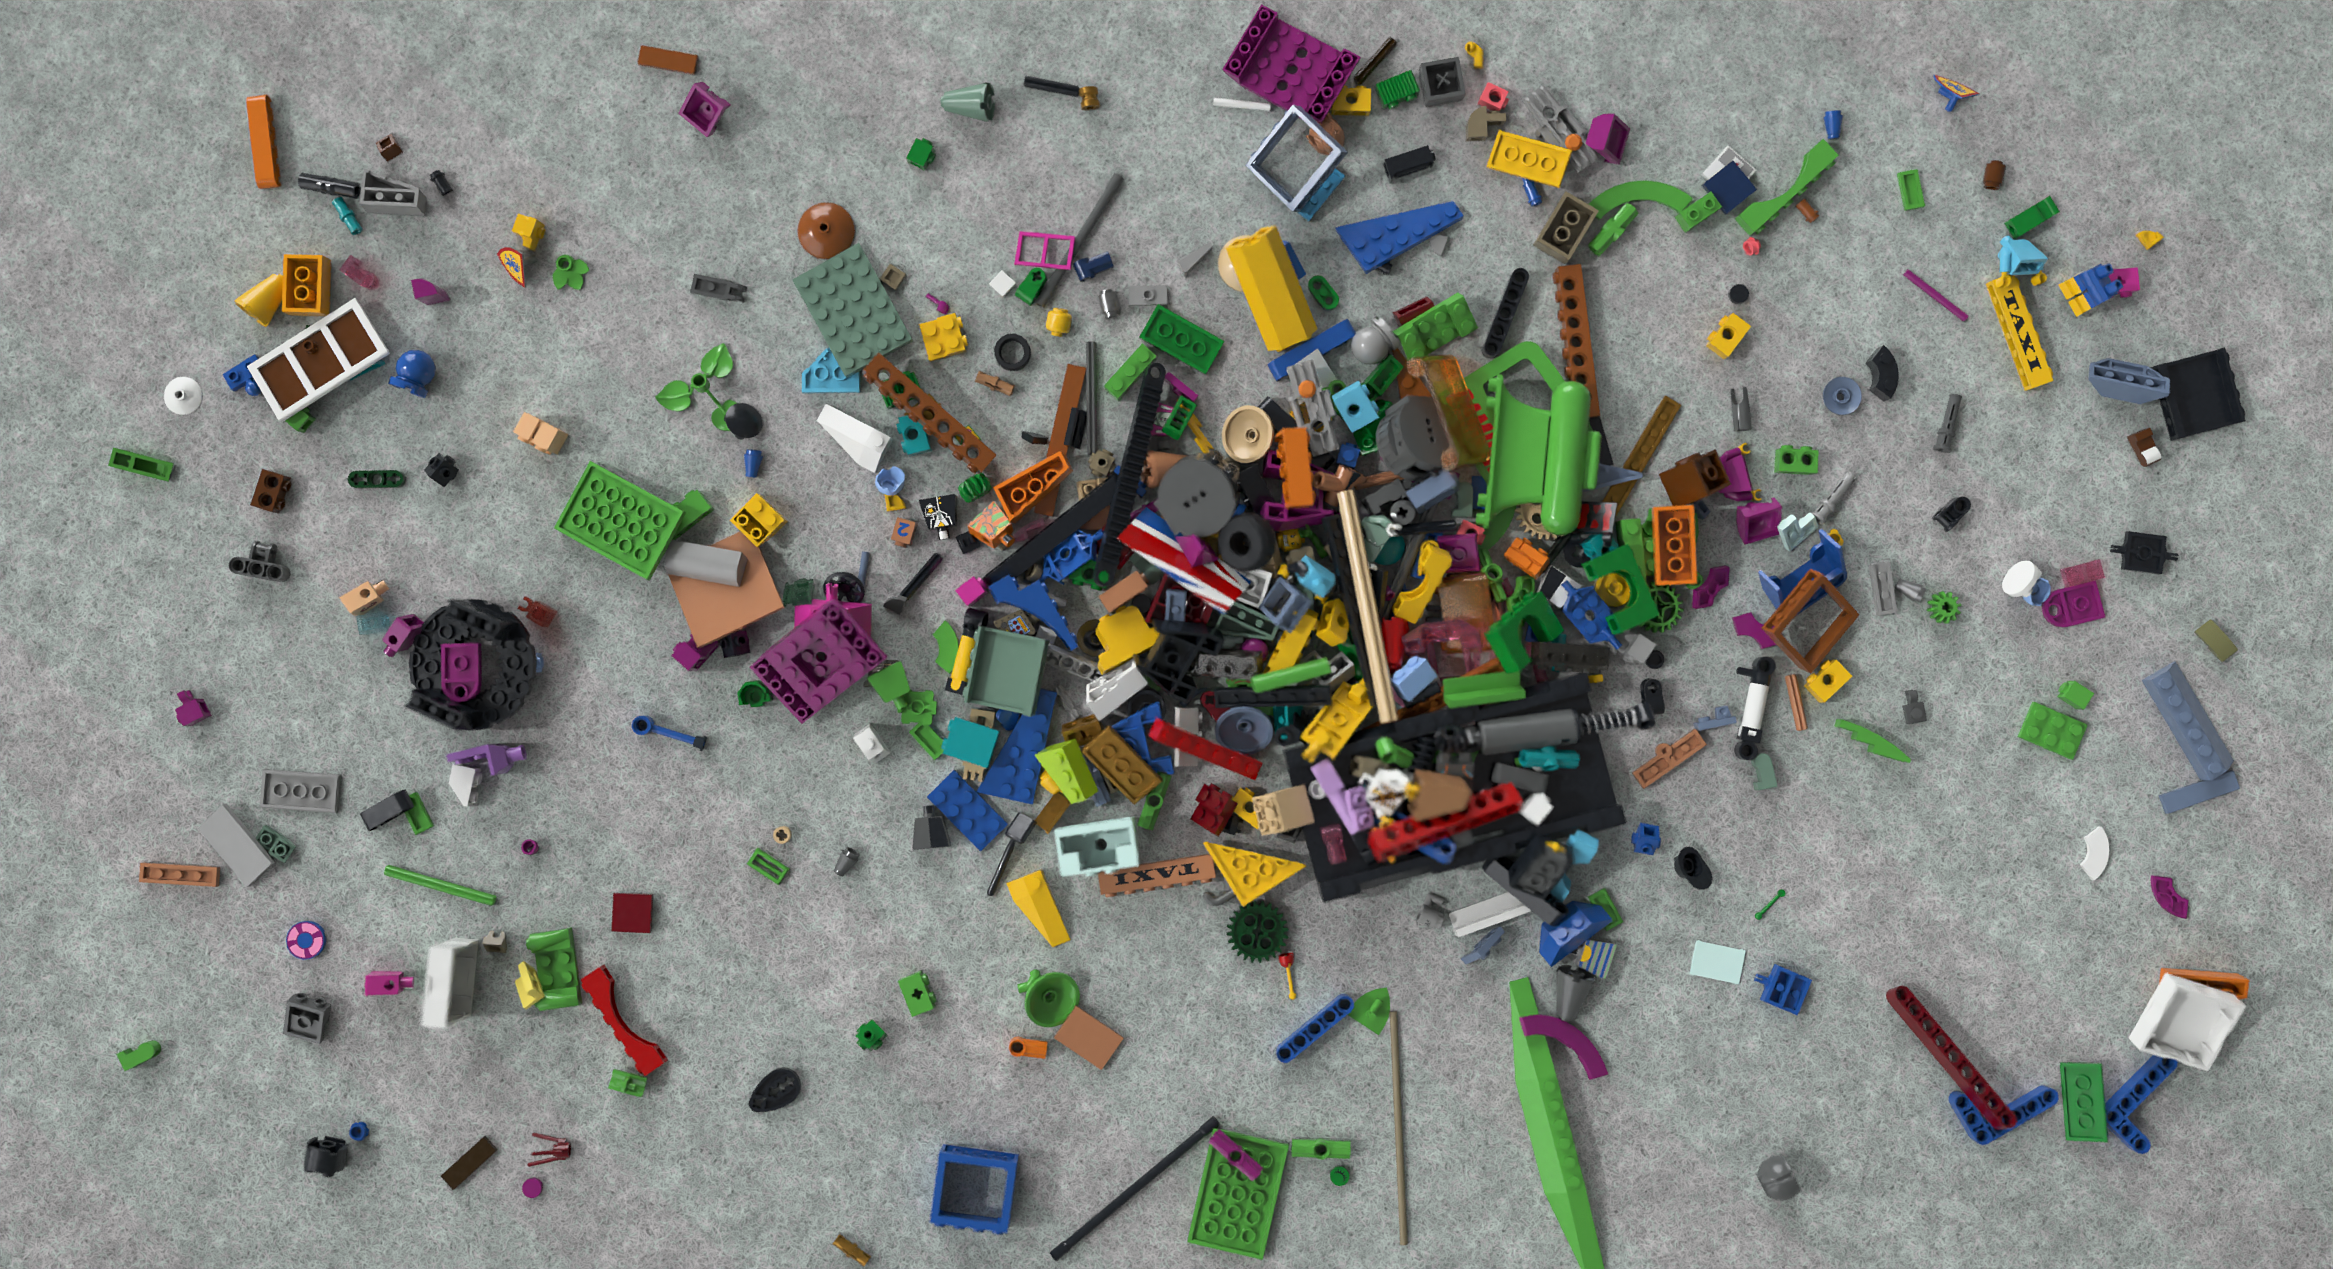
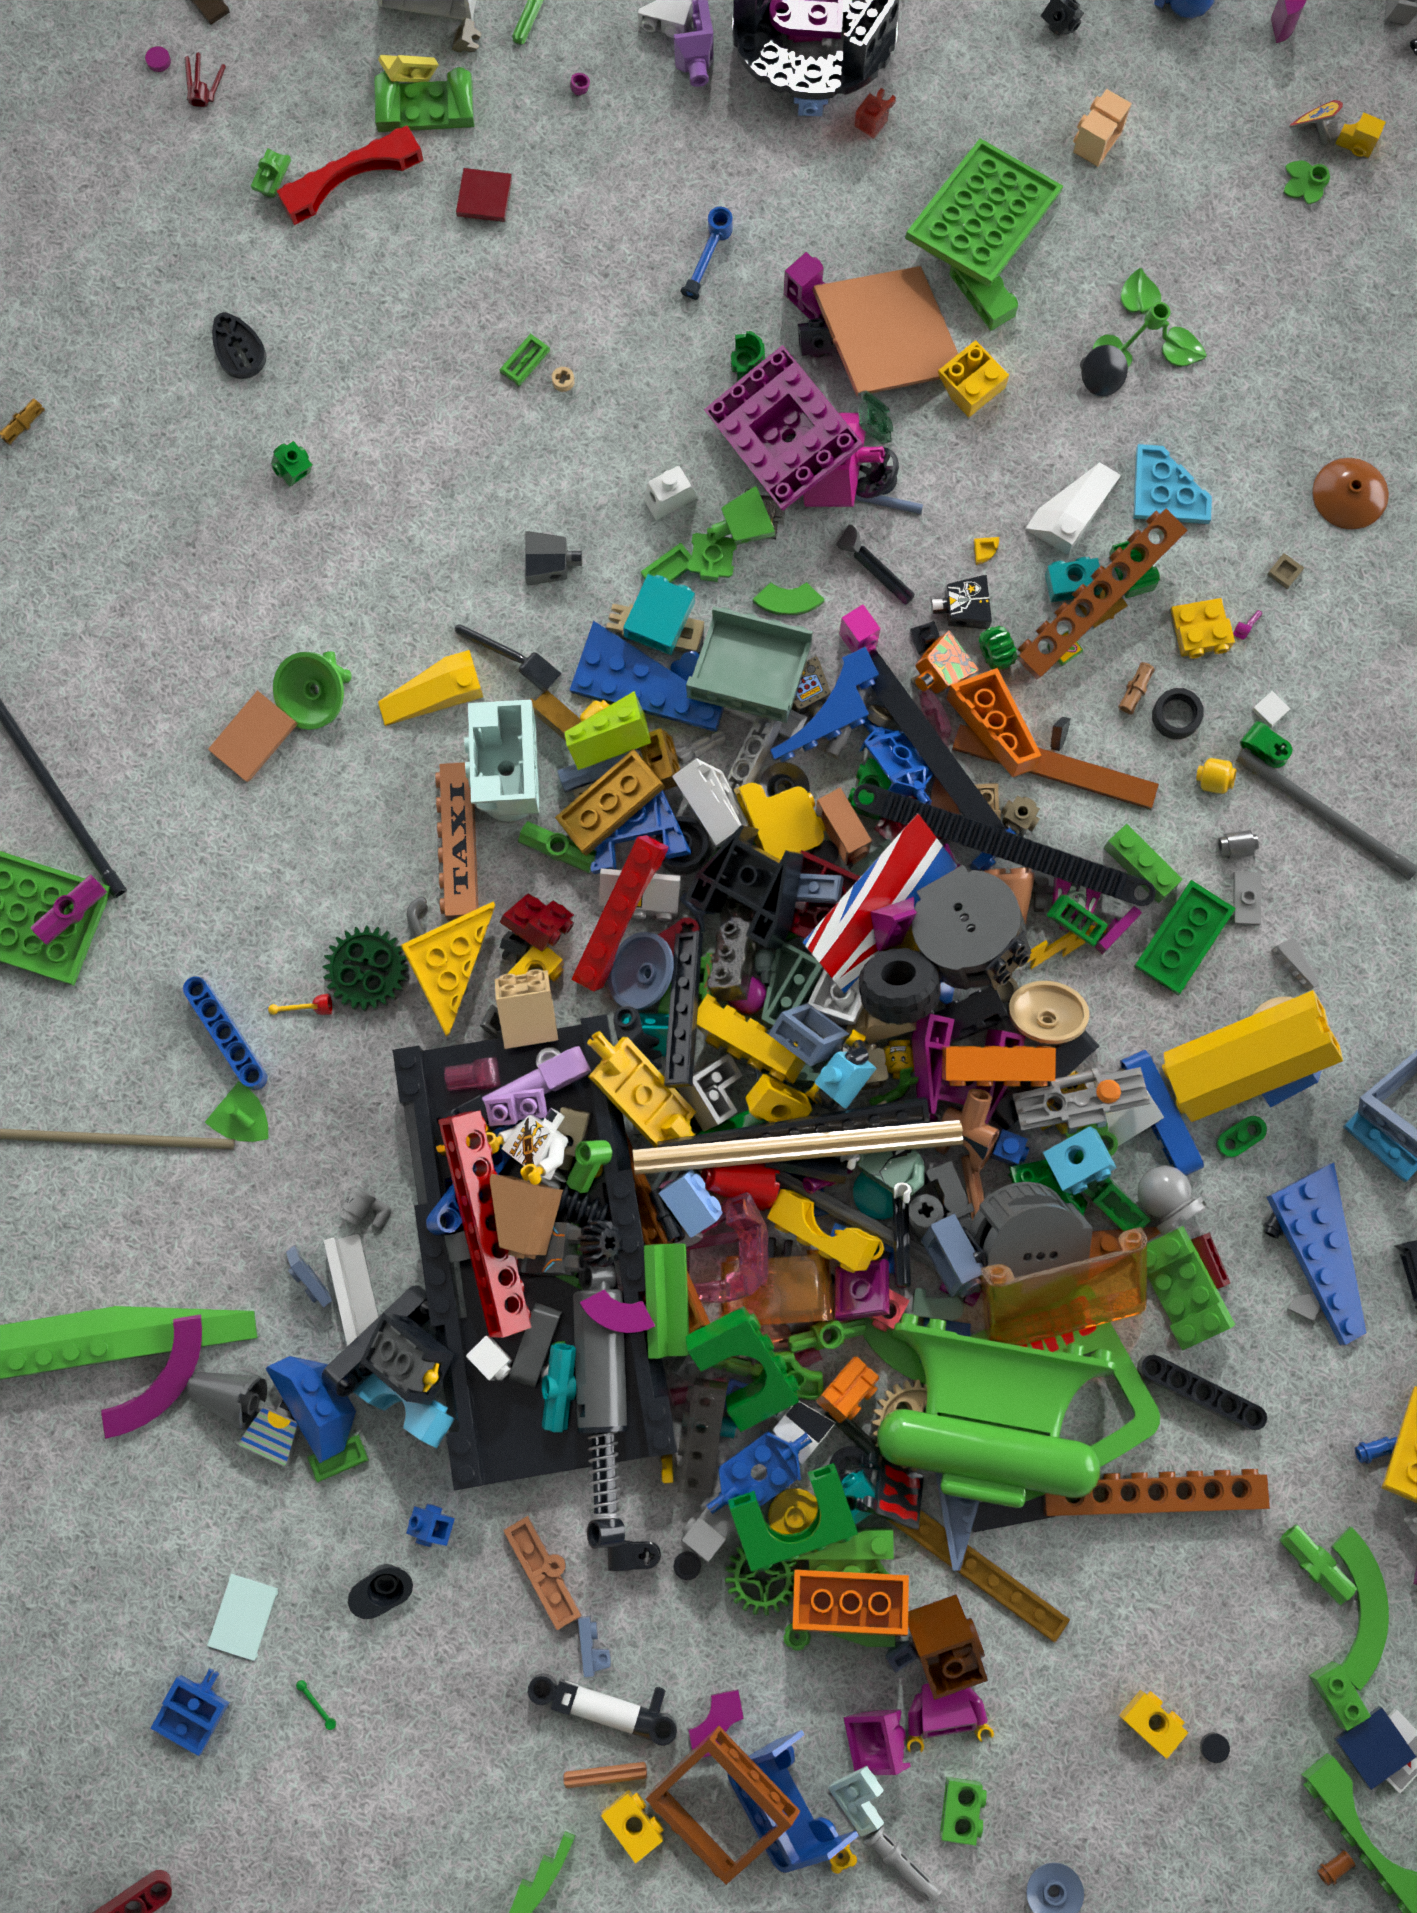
camera: 95 degrees right, 10 degrees down
(705, 563) = (922, 309): light grey brick -> none
(716, 288) = (1279, 351): dark grey hinge -> none
(752, 462) = (1050, 379): blue cone -> none
(846, 860) = (521, 453): dark grey cone -> none
(852, 310) = (1245, 515): sand green plate -> none
(890, 481) = (1013, 543): light blue hair -> none
(903, 532) = (944, 556): nougat brick -> none
(915, 1003) = (326, 521): bright green brick -> none
(967, 810) = (570, 608): blue plate -> none
(972, 620) = (823, 630): piece -> none
(979, 1157) = (114, 582): blue window -> none
(1030, 1048) = (249, 660): orange piece -> none
(1045, 247) = (1316, 767): dark pink window -> none
(1075, 428) = (1069, 789): black tile -> none
(1091, 266) = (1289, 821): dark blue piece -> none
(1091, 387) = (1112, 812): dark grey axle -> none
(1290, 675) = (710, 1031): bright green brick -> none
(1307, 1148) = (58, 1044): bright green piece -> none
(1339, 1175) = (21, 1050): green tile -> none
(1500, 722) = (617, 1315): none -> magenta tile
(1565, 227) = (1323, 1491): dark tan brick -> none
(1716, 580) = (775, 1651): magenta tile -> none
(1741, 412) = (1040, 1733): dark grey piece -> none
(1754, 245) = (1288, 1778): coral plate -> none
(1764, 772) = (508, 1715): sand green leg -> none

